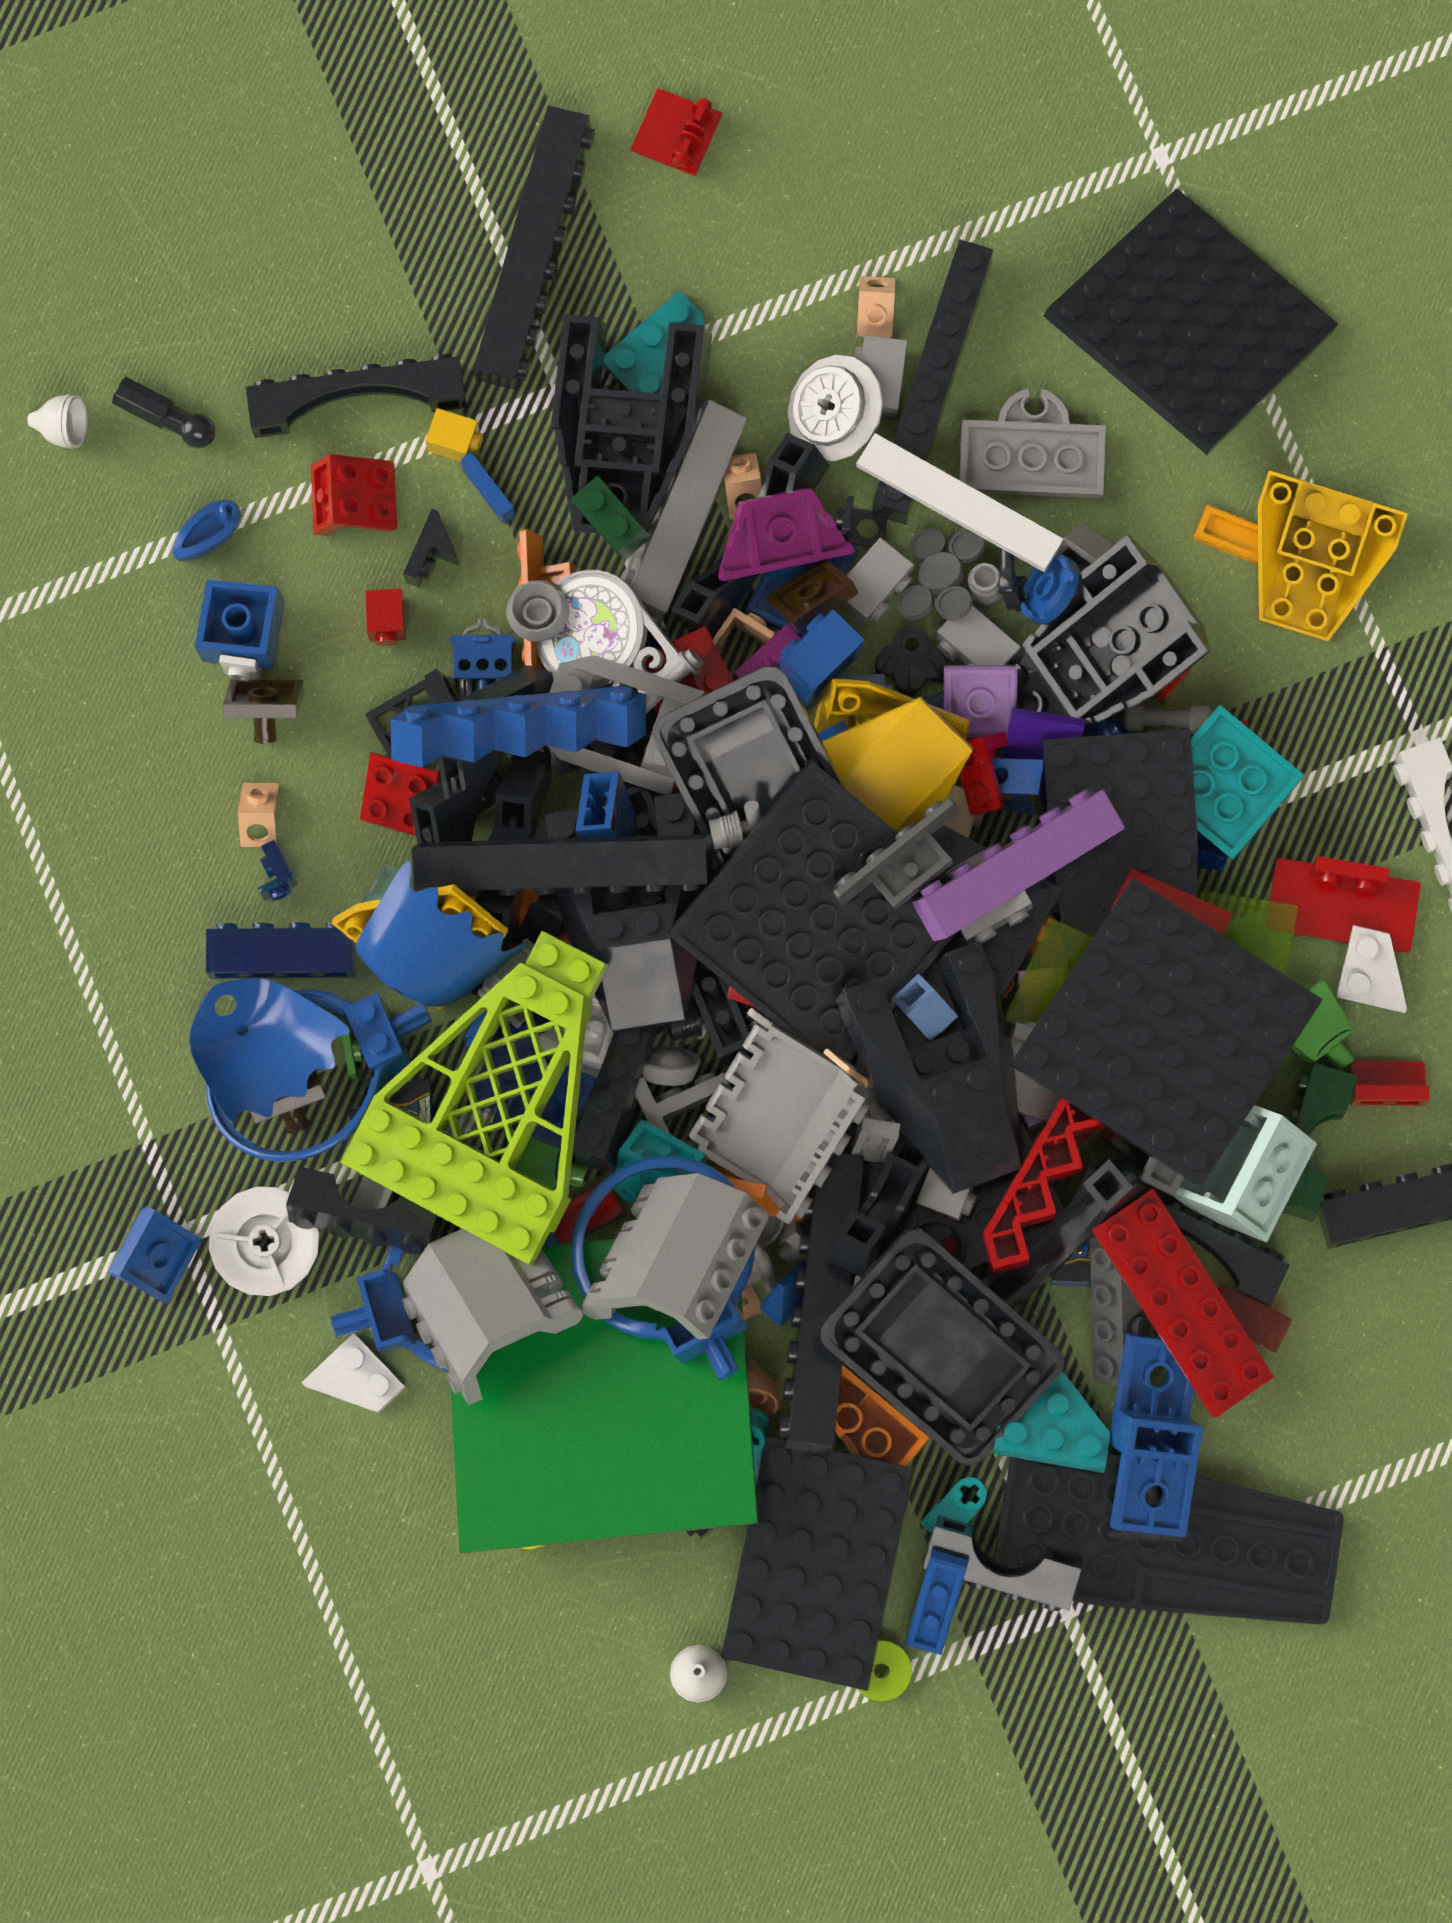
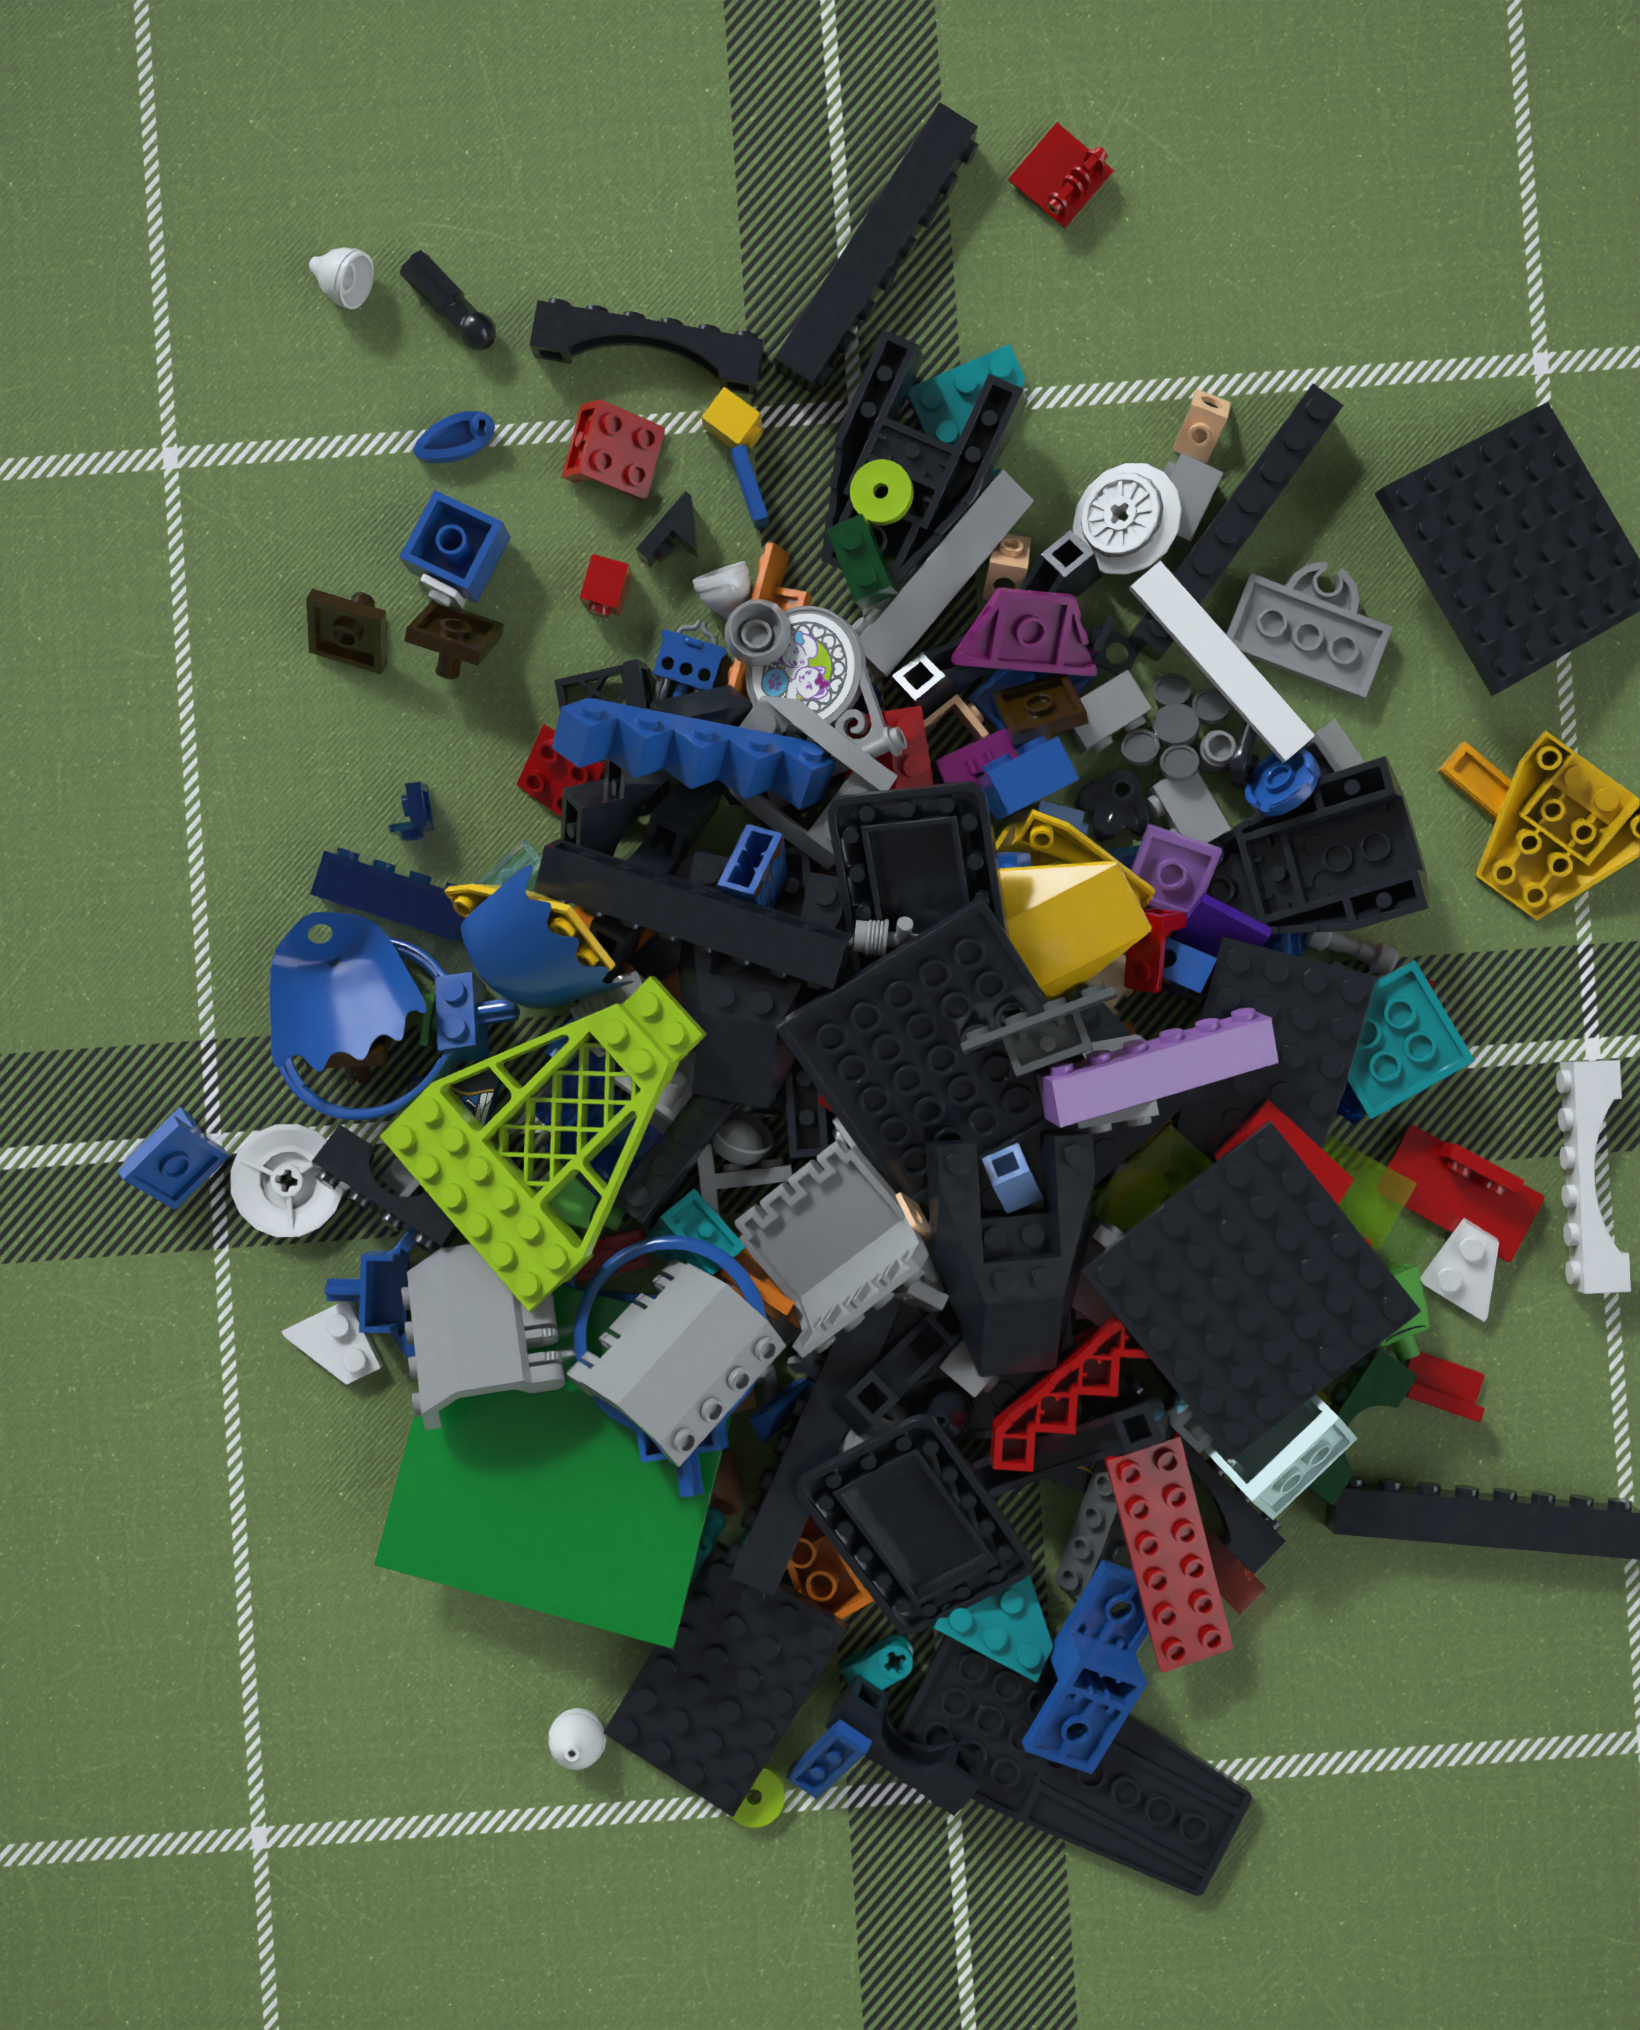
camera: 15 degrees right, 10 degrees up
(165, 728) = (347, 629): none -> dark brown tile
(257, 806) = (416, 741): light nougat bracket -> none
(494, 583) = (724, 588): none -> white helmet
(597, 441) = (869, 479): none -> lime piece

